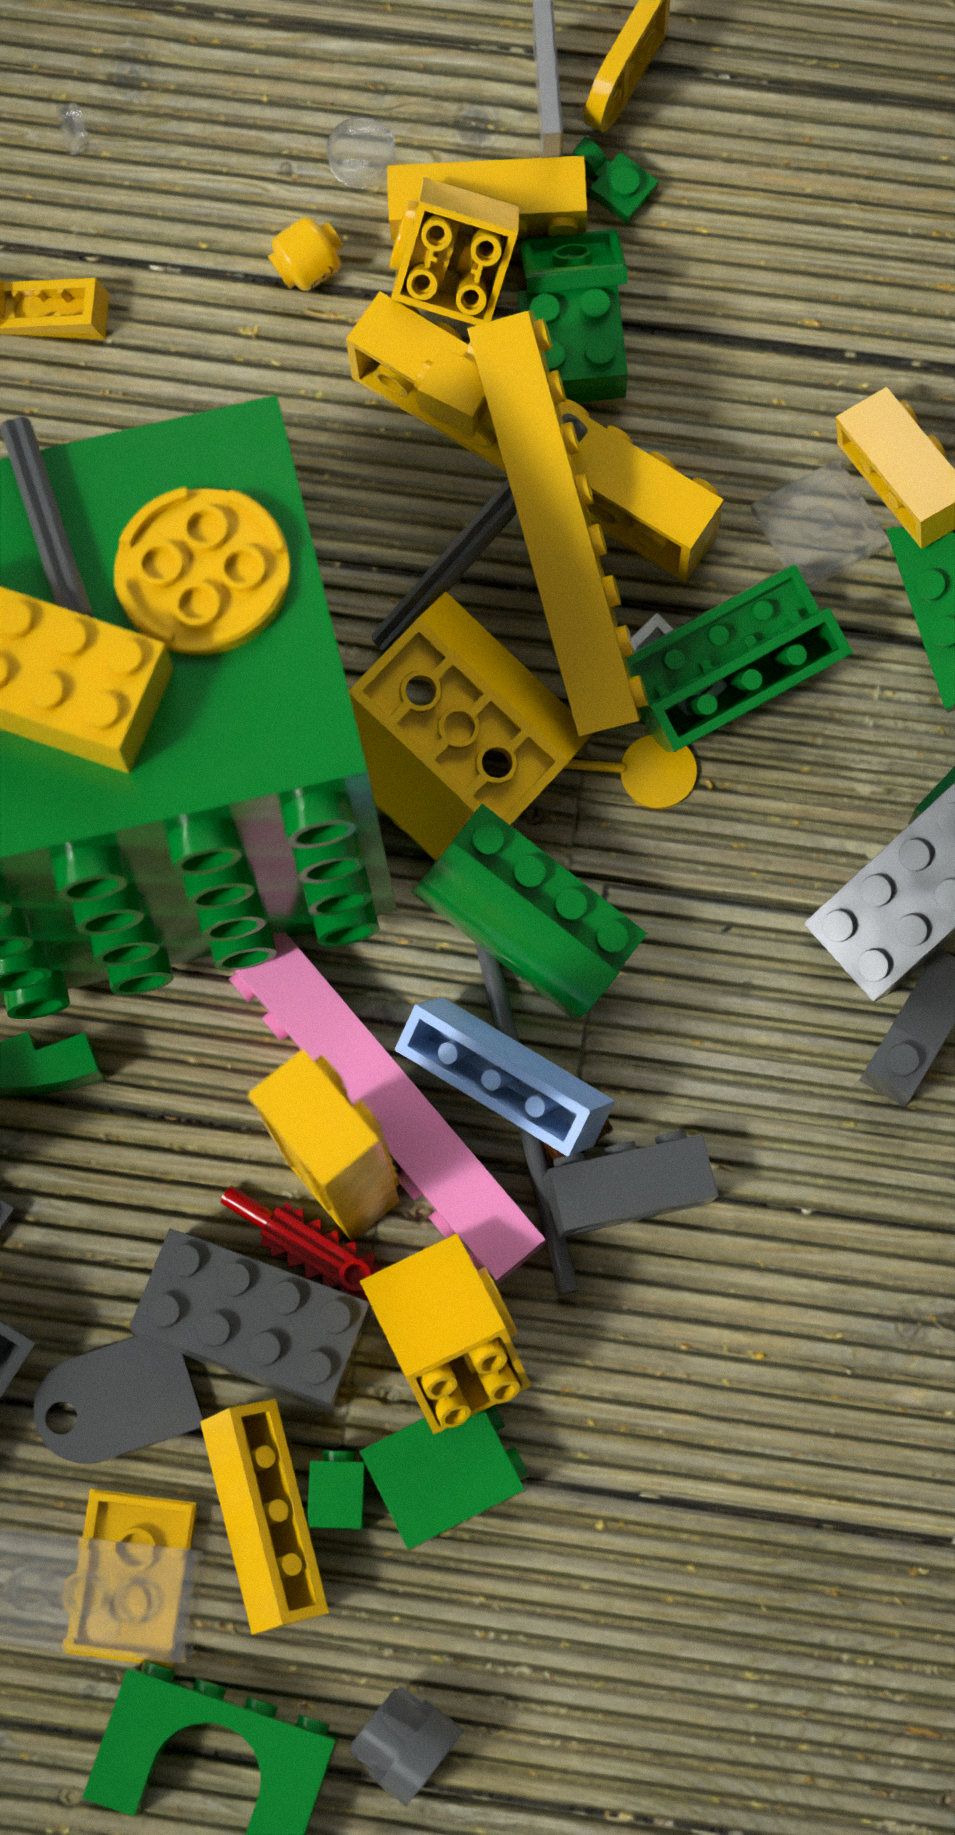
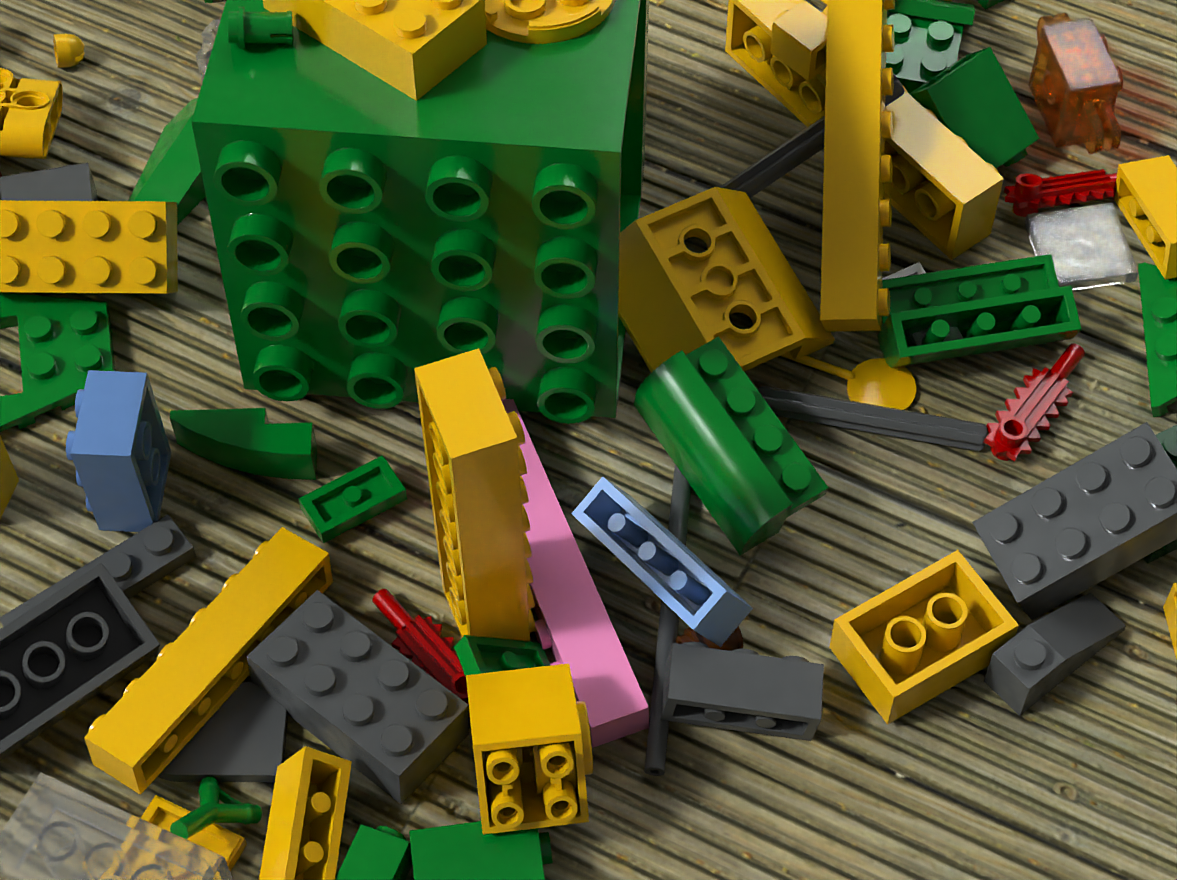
camera: 15 degrees right, 20 degrees down
(88, 1332) = (205, 662): none -> yellow brick
(157, 1096) = (352, 499): none -> green plate
(157, 1491) = (213, 812): none -> green piece
(387, 1237) = (497, 654): none -> green plate
(659, 816) = (875, 418): none -> dark grey axle
(663, 401) = (980, 107): none -> green brick
(761, 319) = (1076, 84): none -> clear orange brick
(789, 1065) = (921, 636): none -> yellow brick
(793, 450) = (1036, 192): none -> red piece
(824, 743) = (1032, 407): none -> red piece

